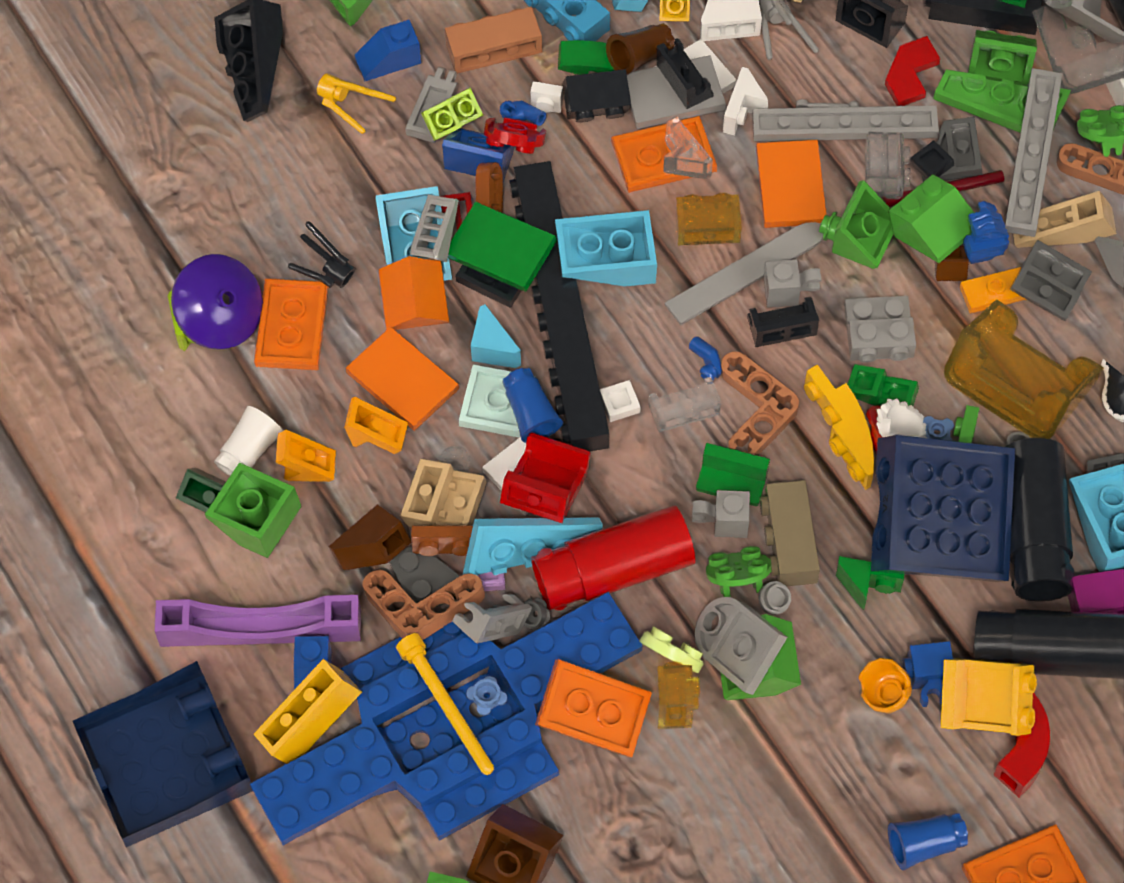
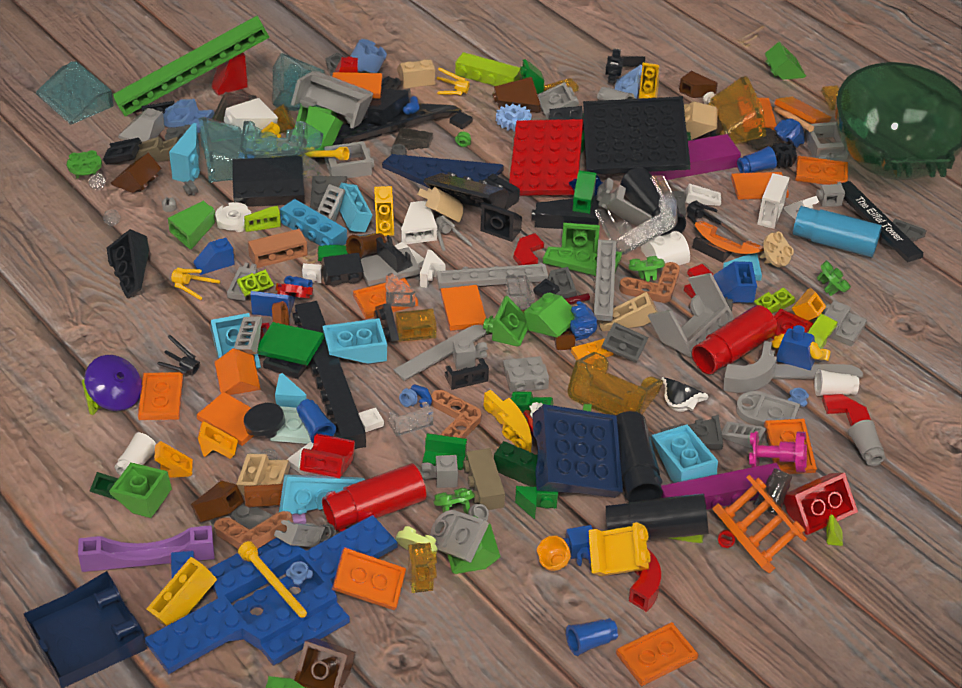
camera: 10 degrees left, 20 degrees down
(451, 394) = (264, 420): none -> black tile
(658, 198) = (386, 317): none -> black plate
(684, 362) = (408, 397): none -> medium blue plate
(845, 509) = (516, 463): none -> dark green brick

